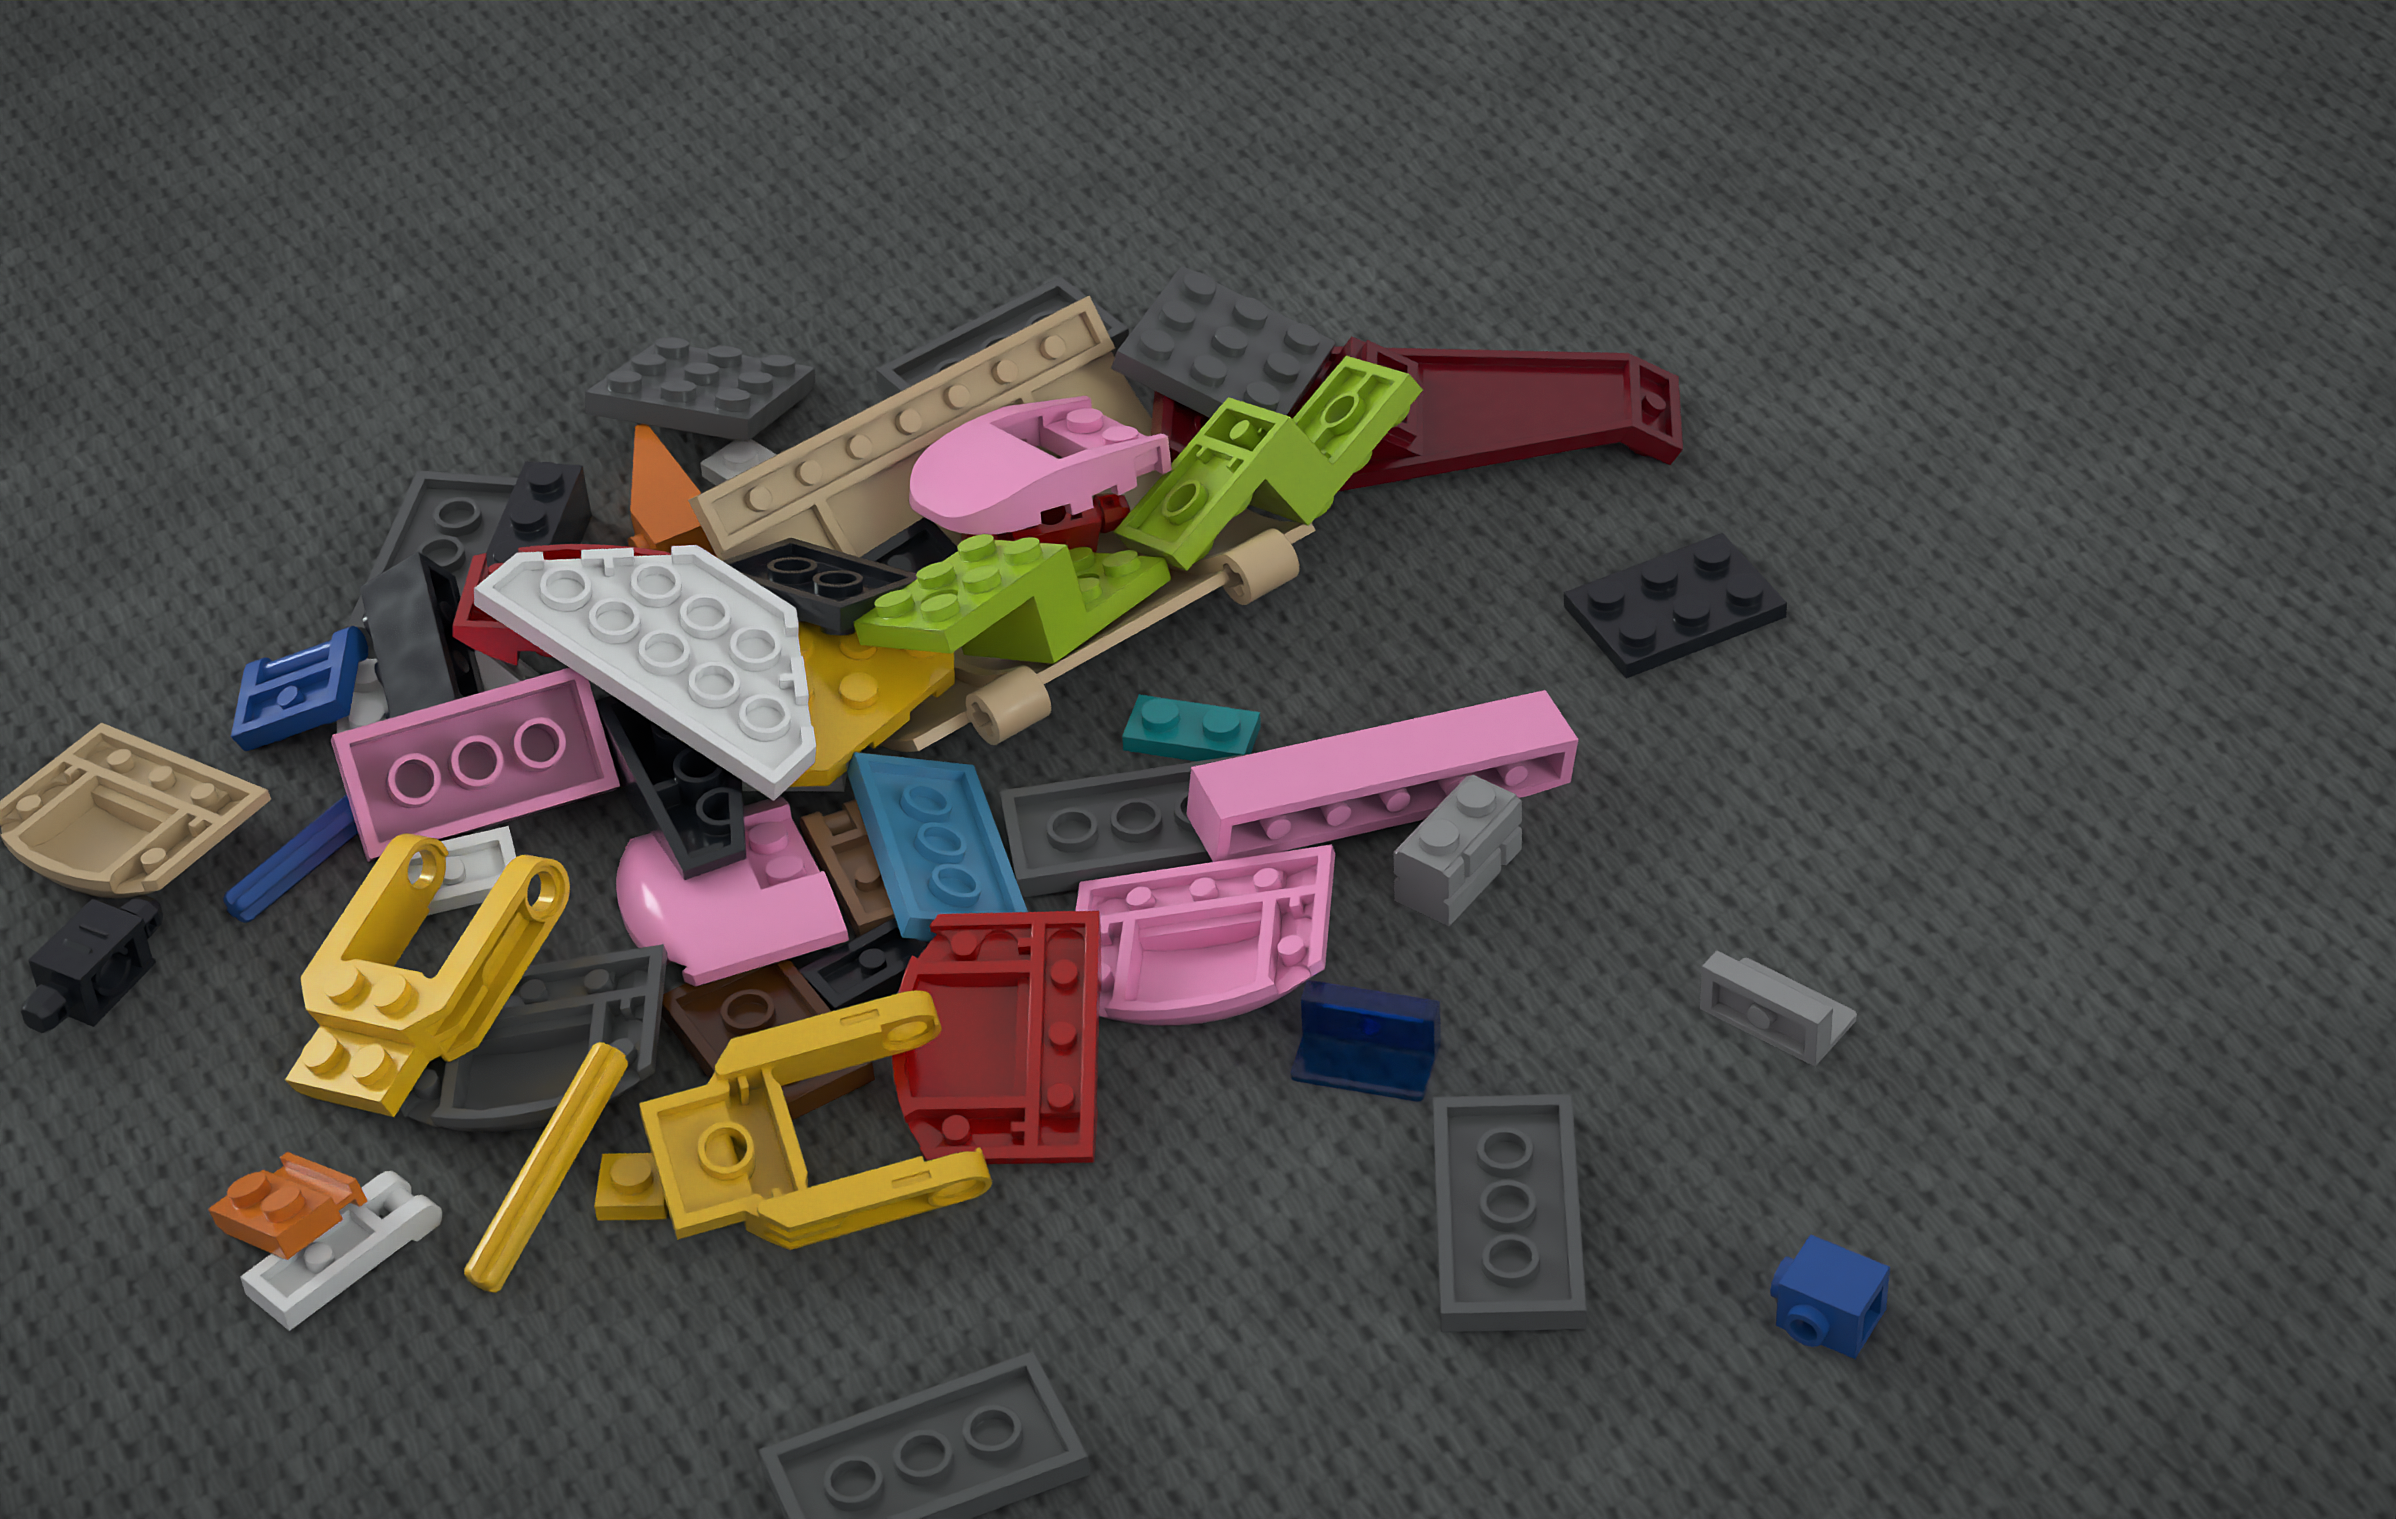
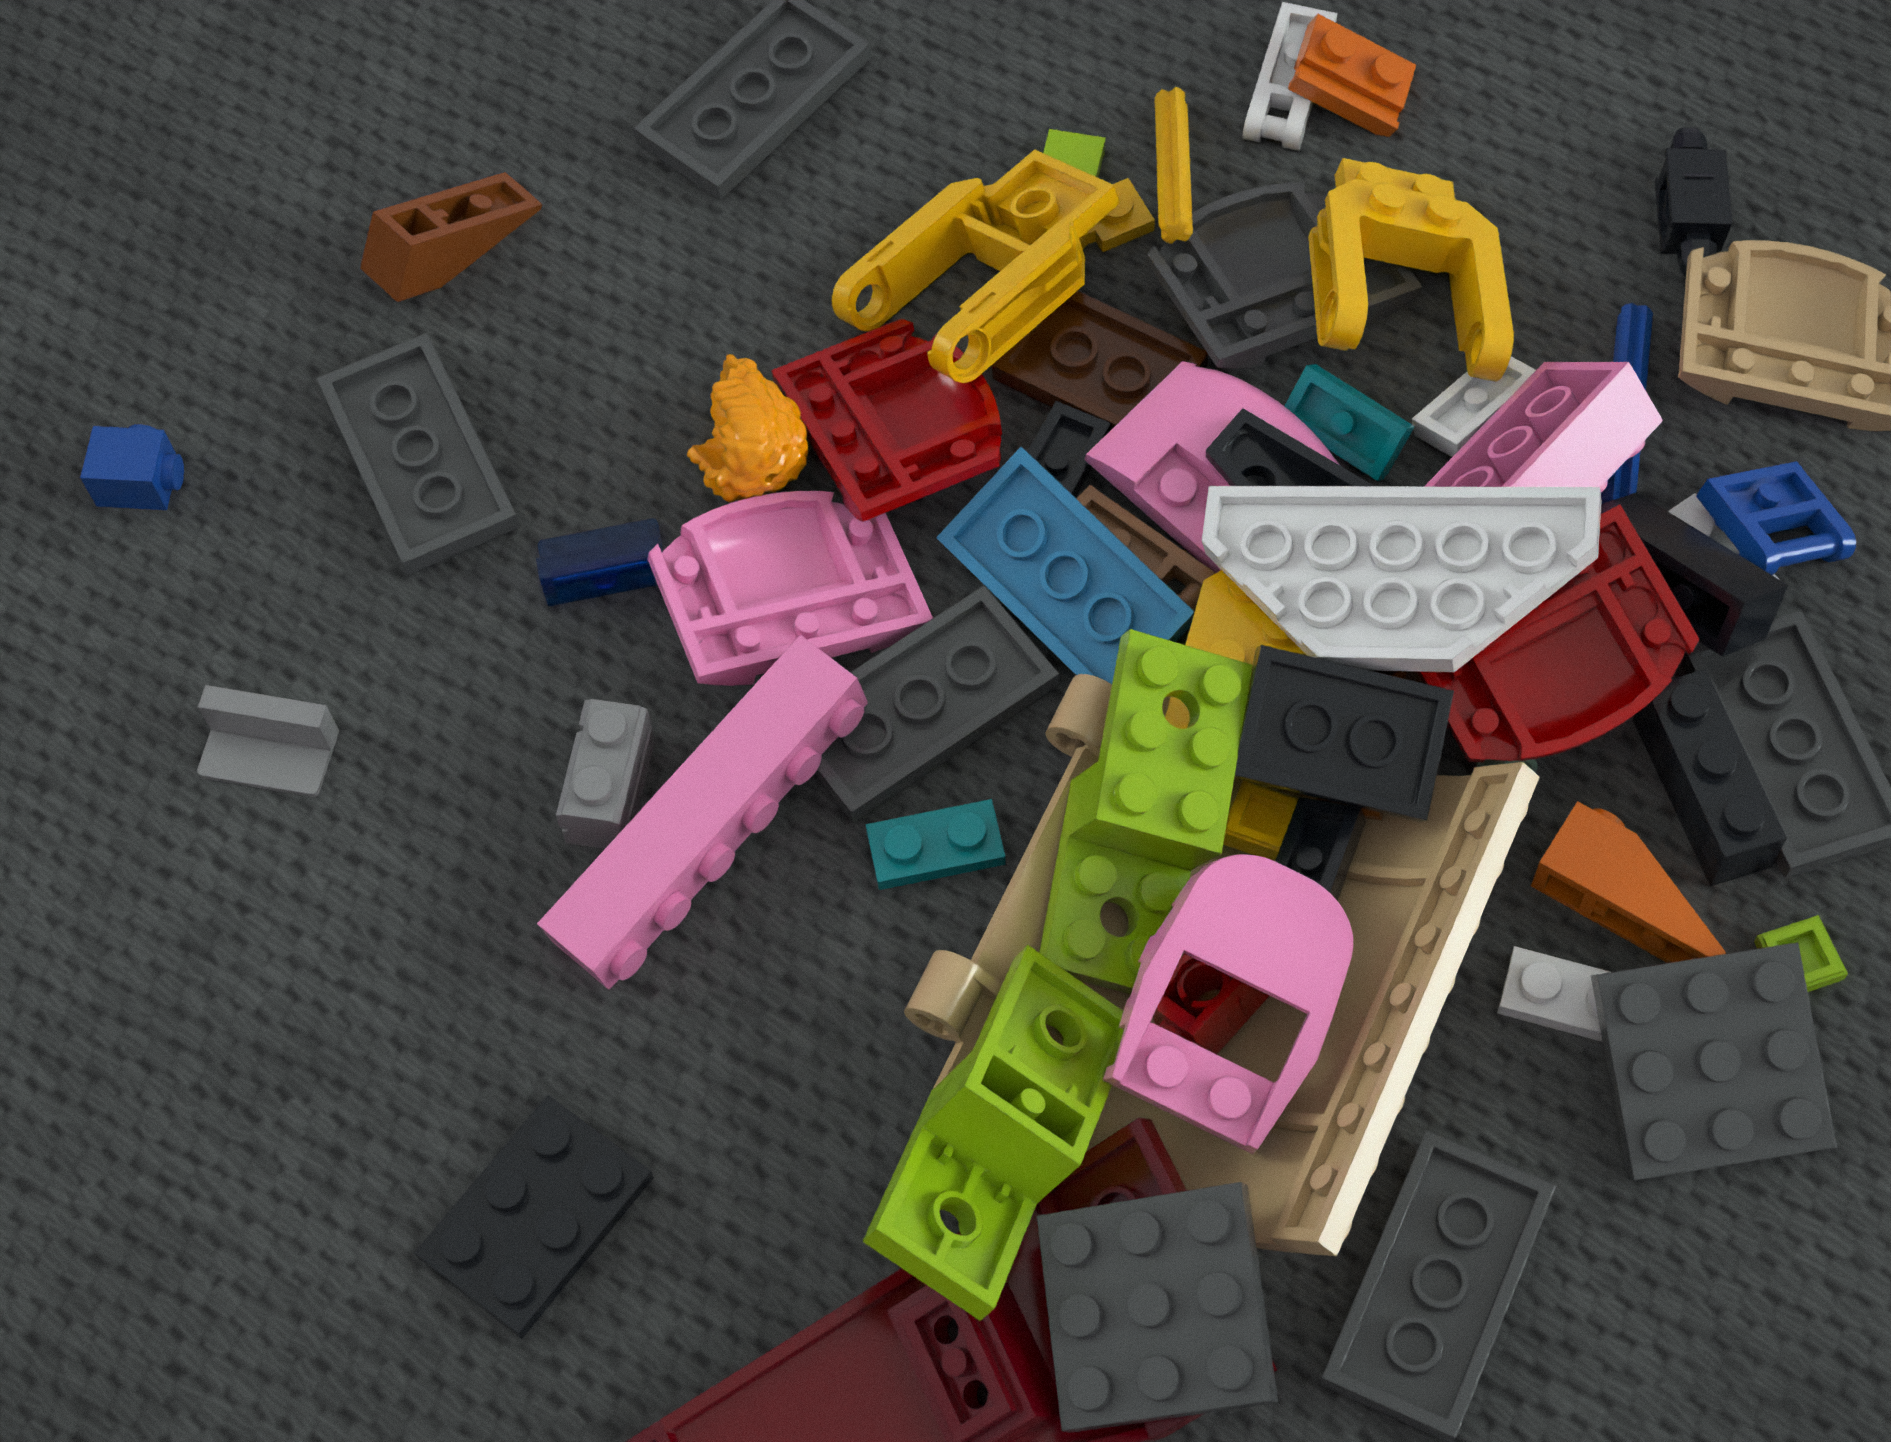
camera: 155 degrees right, 20 degrees up
(573, 446) = (1818, 955): none -> lime tile
(591, 914) = (1349, 421): none -> teal plate
(634, 1258) = (1076, 149): none -> lime tile
(1162, 1064) = (756, 435): none -> light orange piece
(1366, 1421) = (439, 235): none -> dark orange slope

